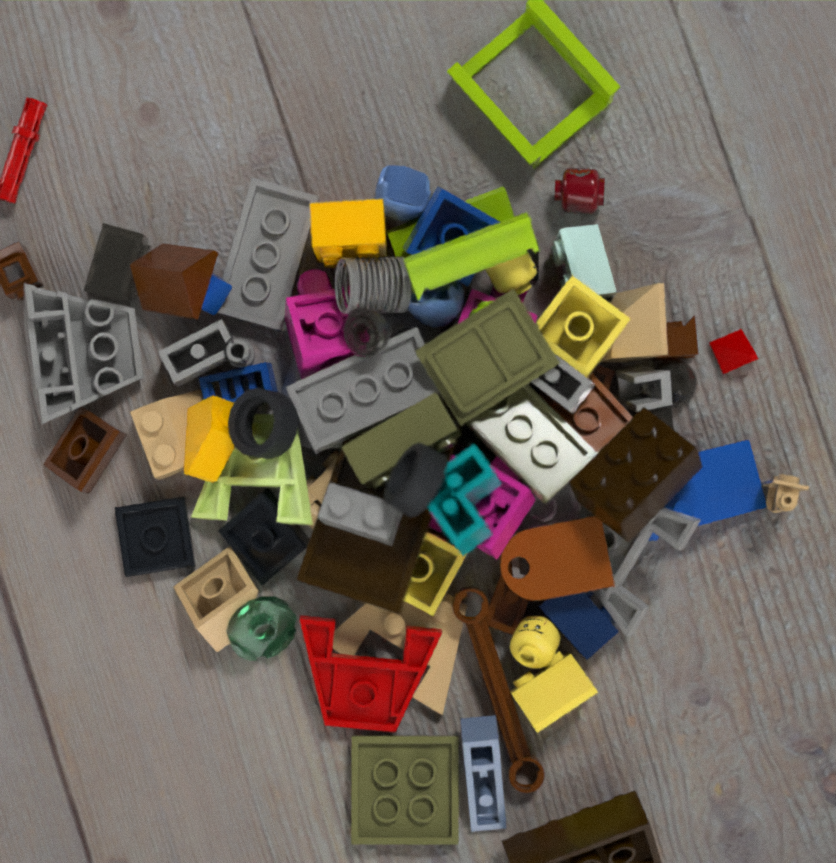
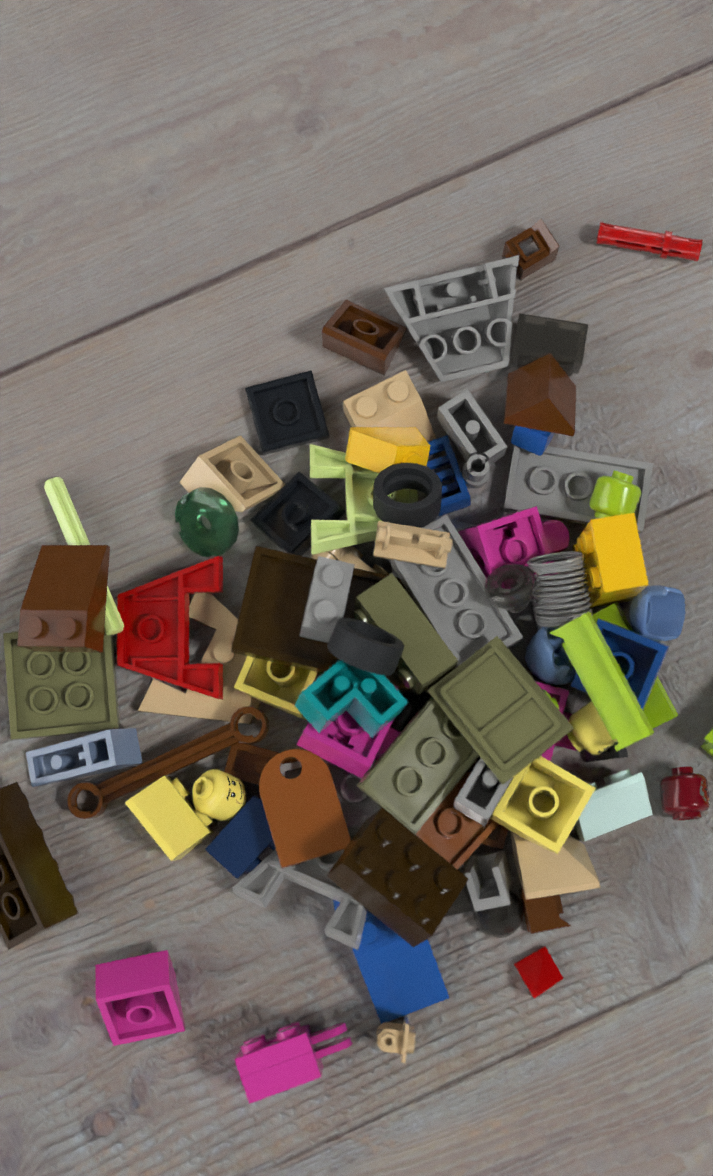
camera: 85 degrees right, 5 degrees down
(281, 756) = (75, 535): none -> yellowish green axle
(284, 219) = (614, 495): none -> lime head
(314, 423) = (412, 544): none -> tan hinge
(325, 775) = (66, 600): none -> reddish brown slope
(720, 737) = (139, 997): none -> dark pink slope
(792, 599) = (286, 1059): none -> dark pink brick

